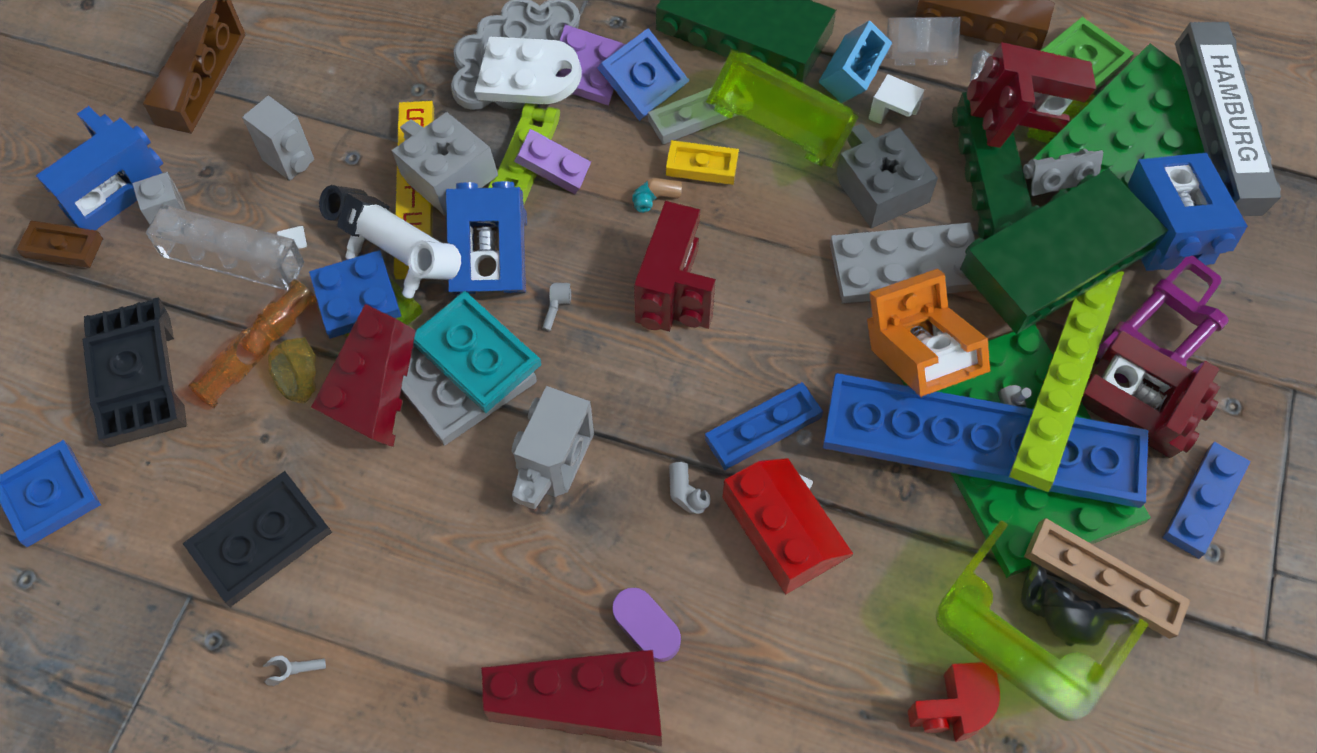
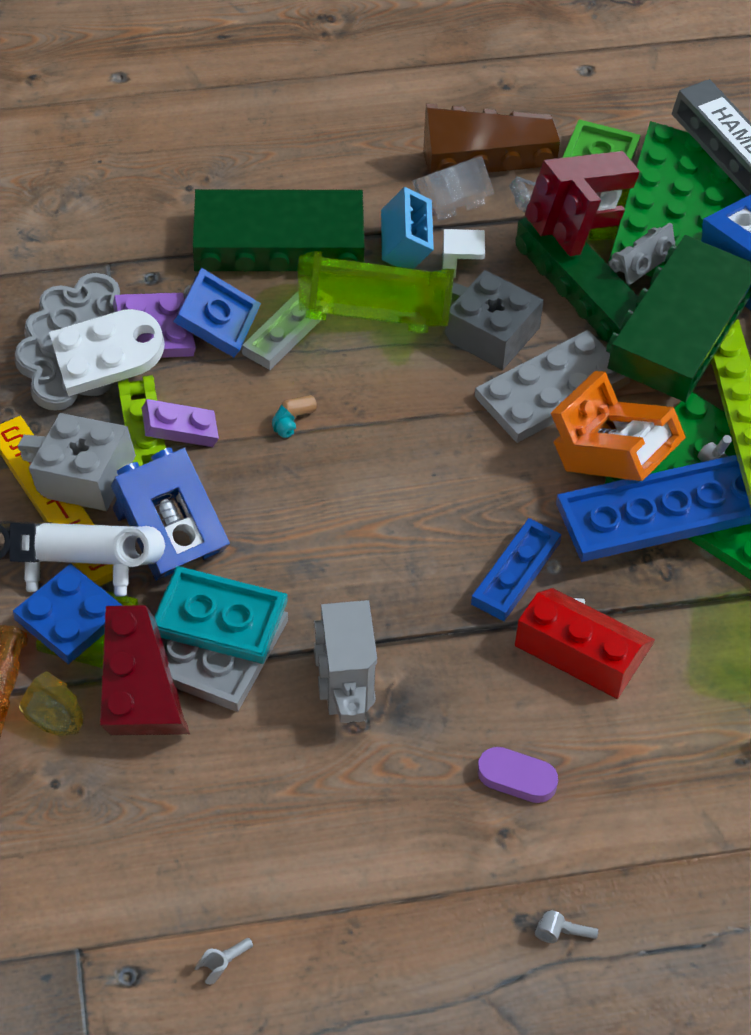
camera: 30 degrees left, 10 degrees down
(257, 538) = (115, 866): black plate -> none
(559, 294) = (260, 537): light grey hand -> none
(579, 695) = (505, 849): dark red wedge -> none
(664, 282) = (360, 483): dark red brick -> none
(684, 494) = (482, 656): light grey arm -> none
(702, 162) = (319, 370): yellow plate -> none

